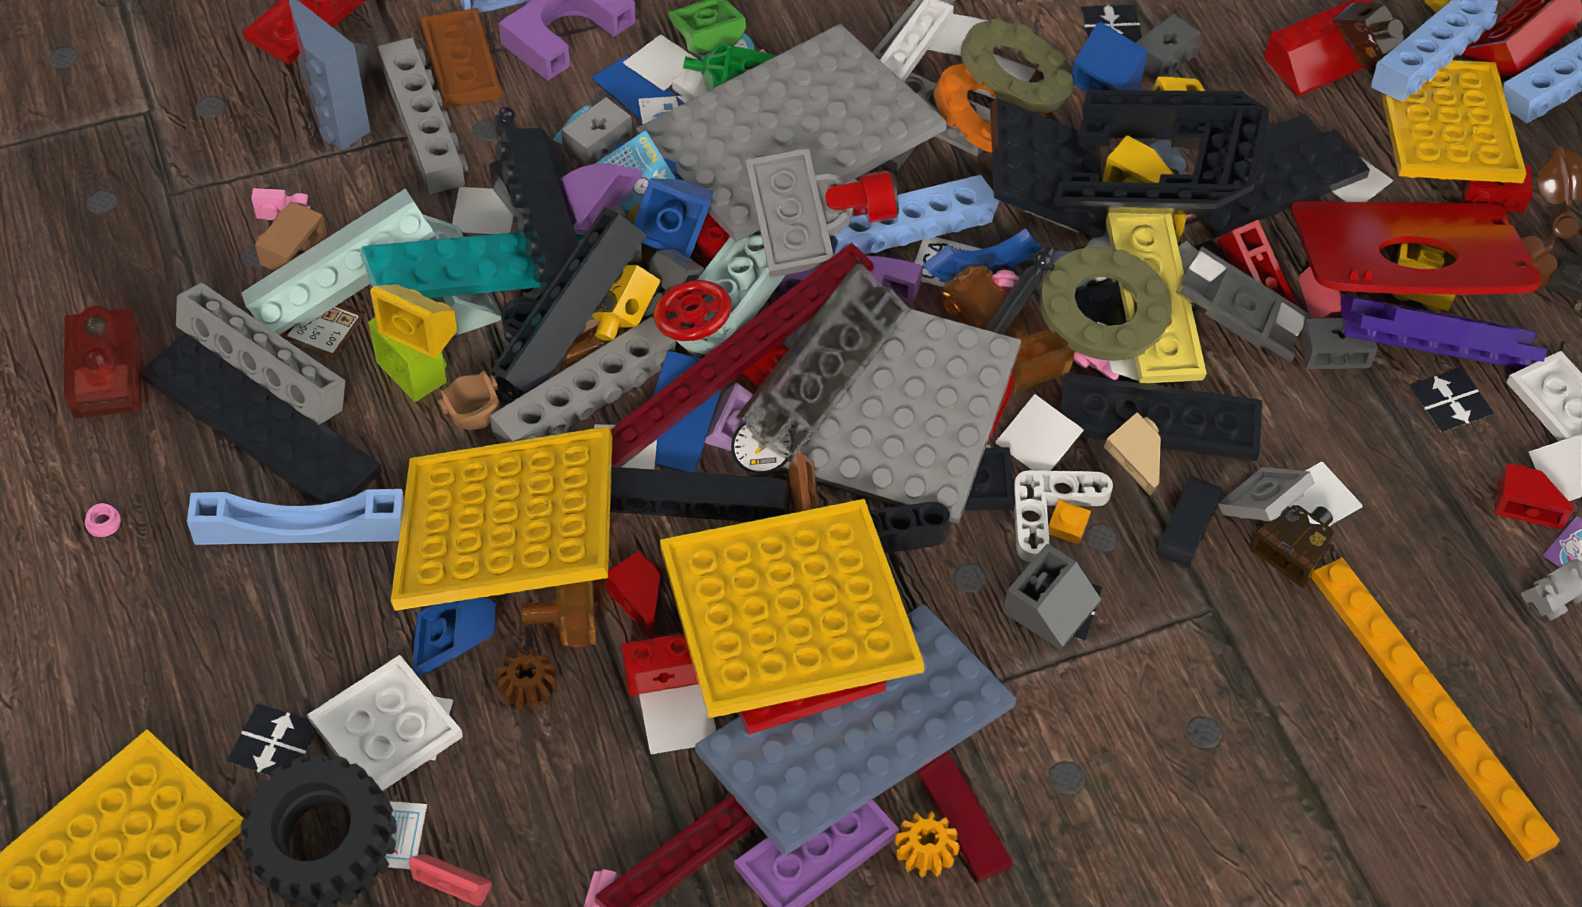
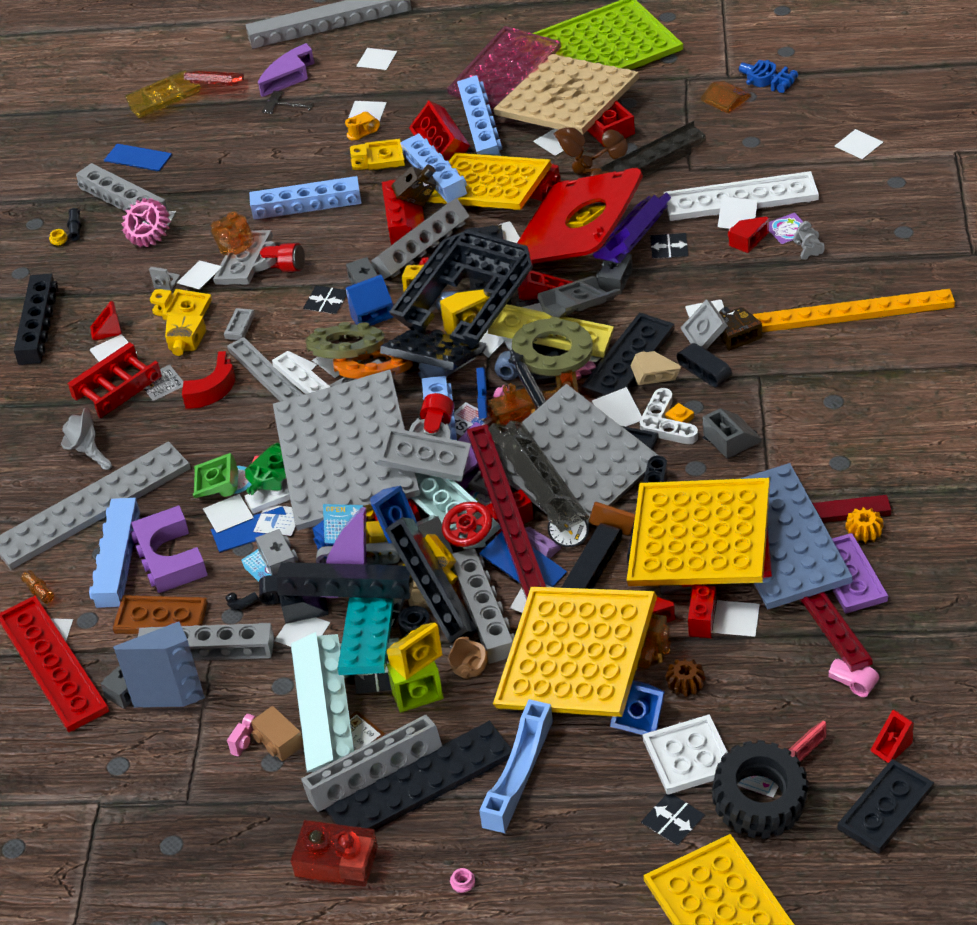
camera: 60 degrees left, 10 degrees down
(1319, 300) = (576, 268): coral slope -> none
(1355, 94) = (385, 261): none -> light grey brick

